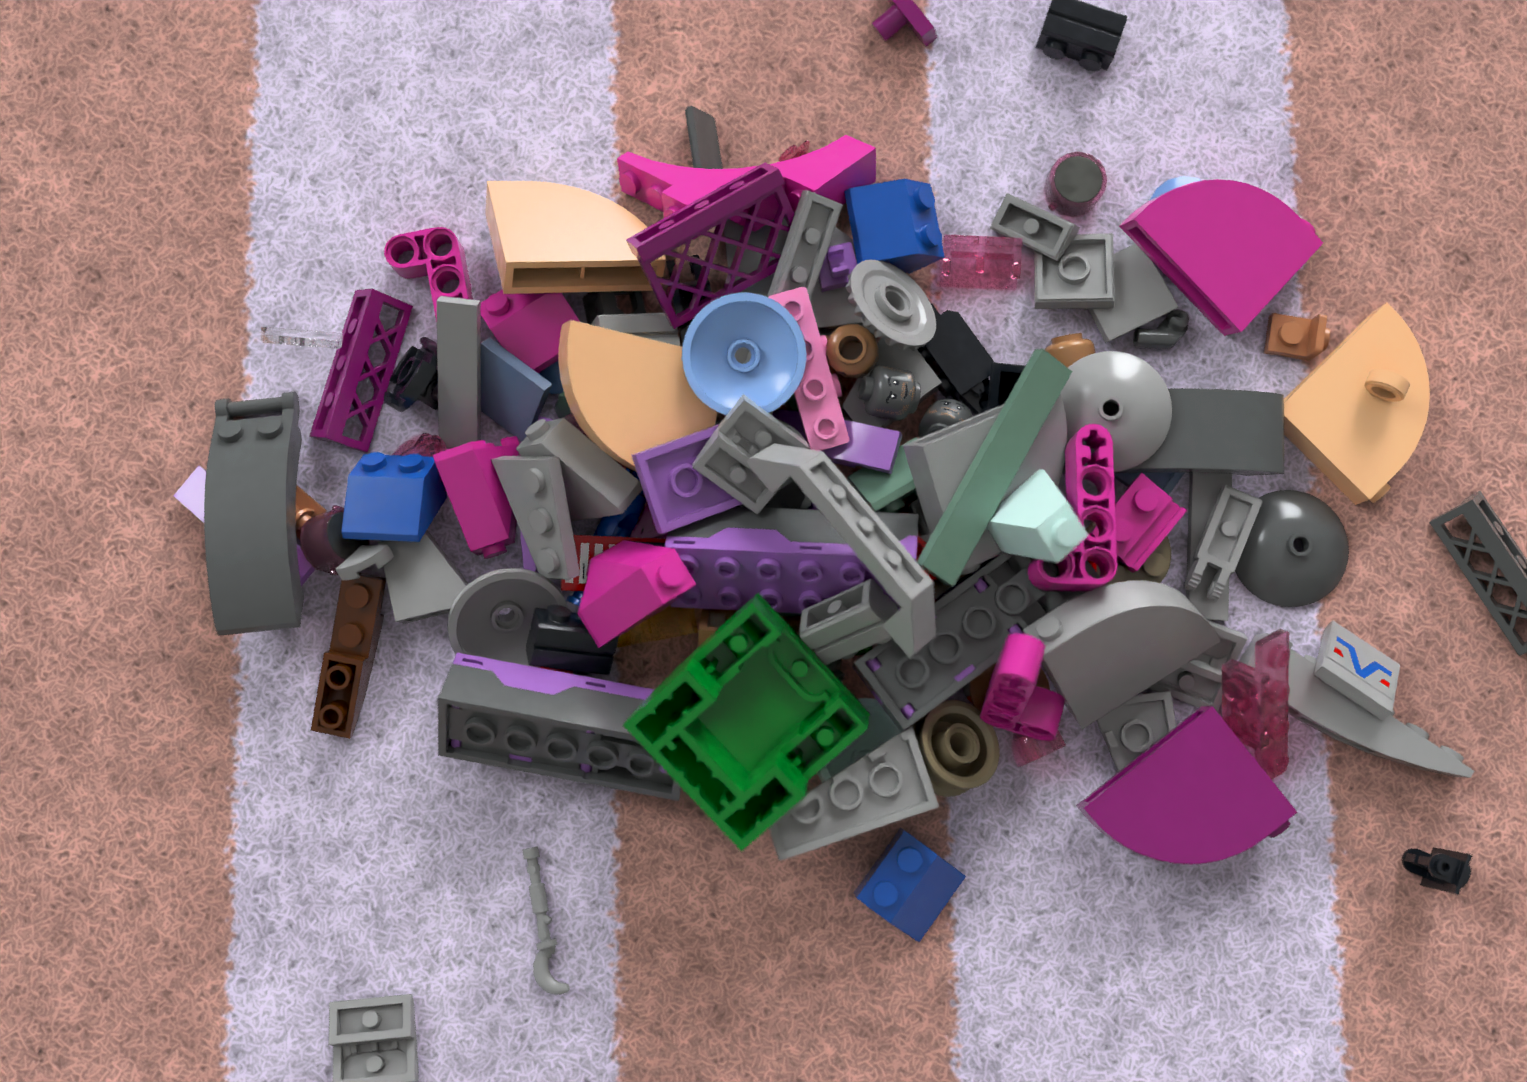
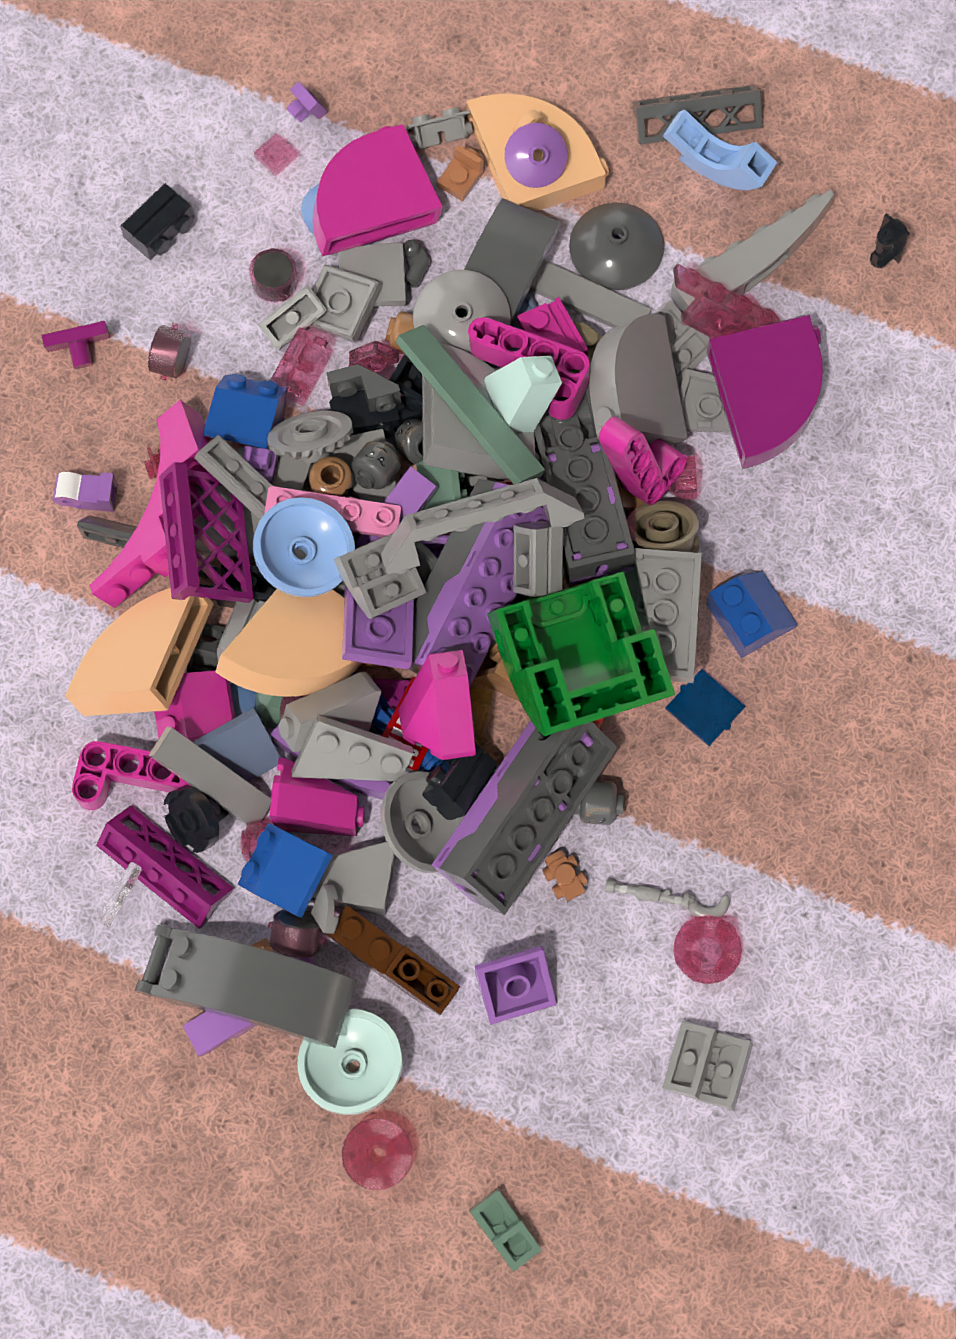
camera: 65 degrees left, 10 degrees down
(115, 895) = (505, 1230): none -> sand green slope
(120, 727) = (373, 1135): none -> clear pink dish
(191, 668) = (326, 1073): none -> light aqua dish
(377, 795) = (515, 985): none -> medium lavender slope
(500, 990) = (707, 949): none -> clear pink dish
(514, 805) = (562, 870): none -> nougat piece
(615, 808) = (601, 804): none -> dark grey head
(736, 101) = (86, 491): none -> medium lavender leg
(775, 883) = (705, 707): none -> clear blue piece
(931, 112) = (169, 351): none -> clear pink piece
(977, 357) = (379, 392): none -> dark grey slope
(1015, 331) = (374, 356): none -> clear pink bracket
(1223, 123) = (275, 154): none -> clear pink tile
(1223, 539) = (590, 285): light grey hinge -> none
(1299, 126) = (305, 104): none -> medium lavender tile
(1351, 297) = (450, 123): none -> light grey hinge
(1353, 388) = (520, 160): none -> medium lavender dish
(1357, 670) = (725, 235): light grey tile -> none
(1450, 621) = (721, 162): none -> light blue arch

